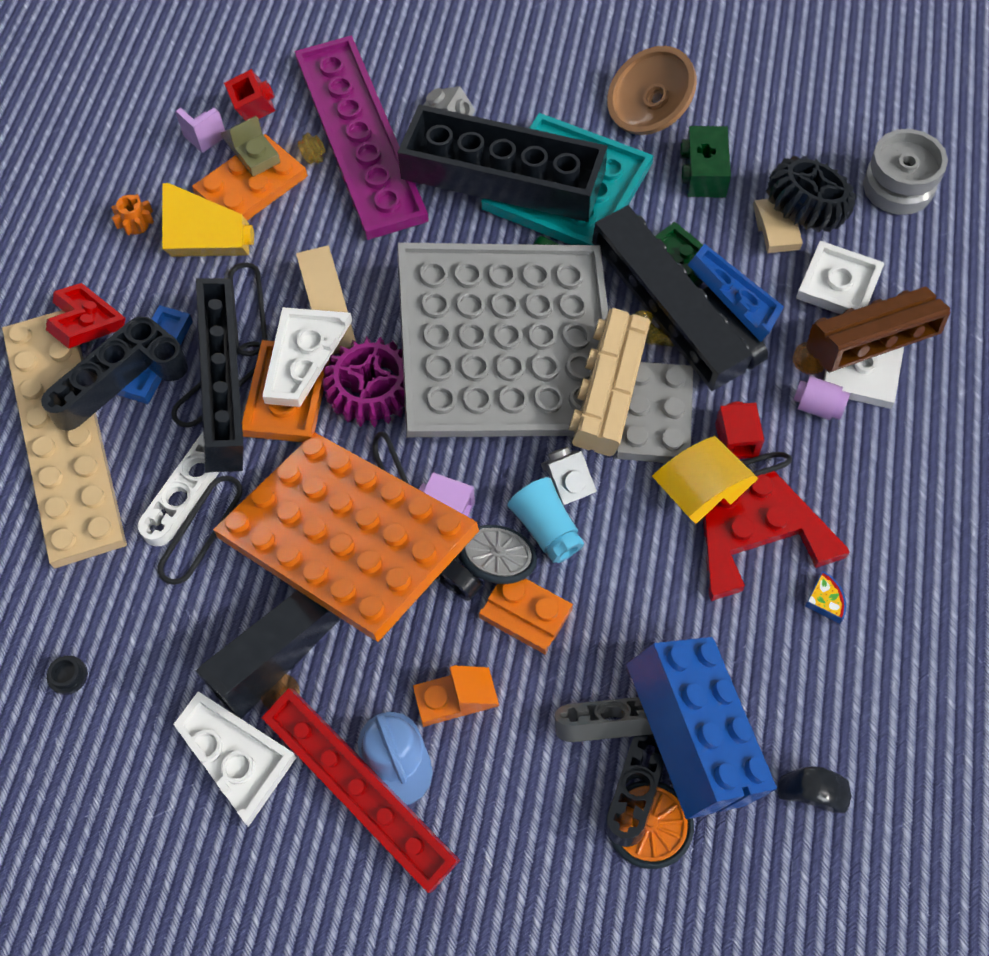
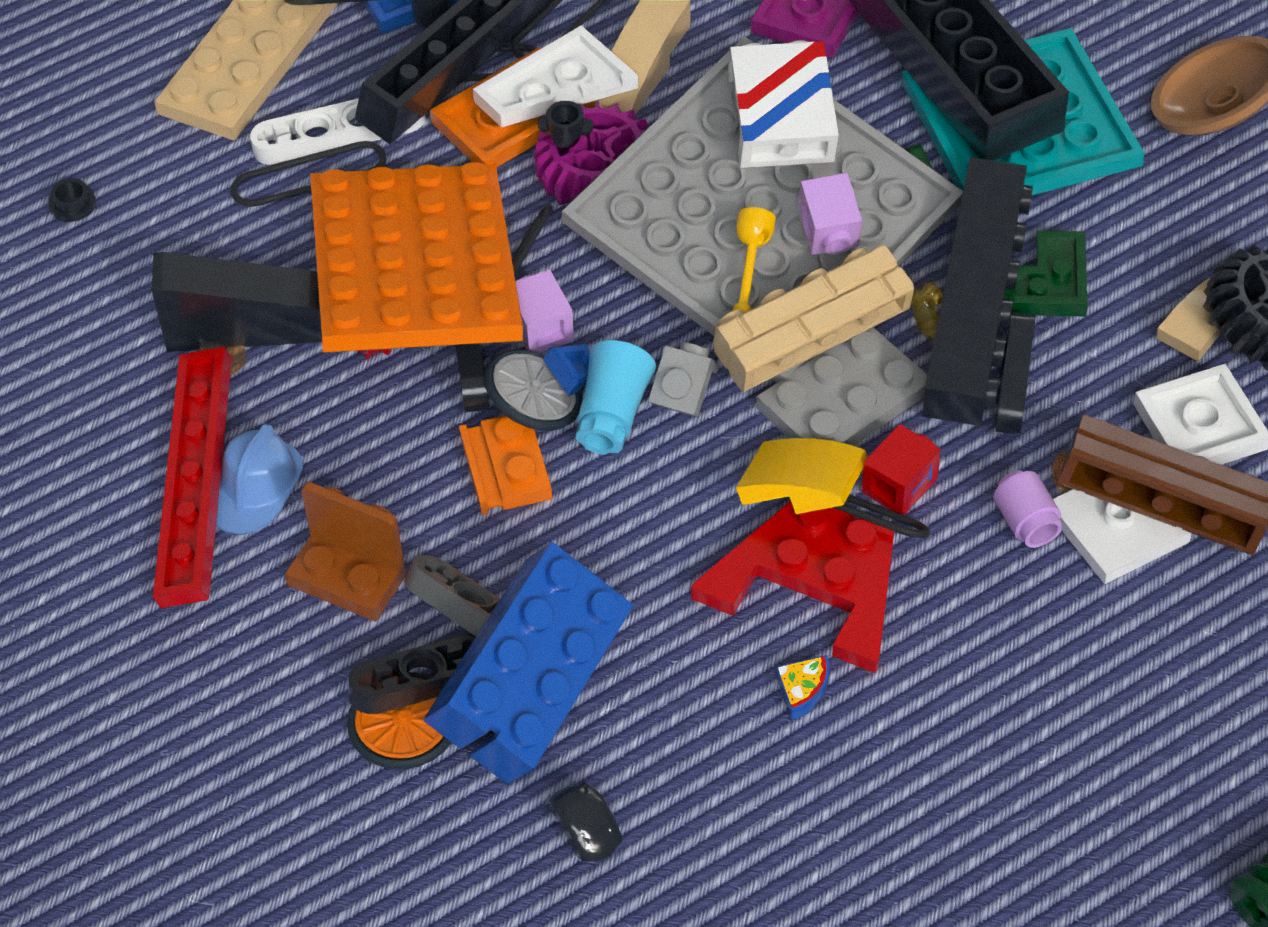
camera: 45 degrees right, 10 degrees down
(235, 754) = (128, 370): white wing -> none
(342, 367) = (565, 123): none -> black plate
(459, 694) = (363, 472): orange slope -> none
(470, 264) = (783, 104): none -> white panel
(501, 522) = (569, 366): none -> blue tile
(514, 755) = (351, 553): none -> dark orange bracket
(528, 355) = (754, 228): none -> yellow hinge
(559, 313) = (829, 214): none -> lavender brick
(707, 161) = (1200, 201): dark green brick -> none
(741, 295) = (1057, 340): blue wing -> none

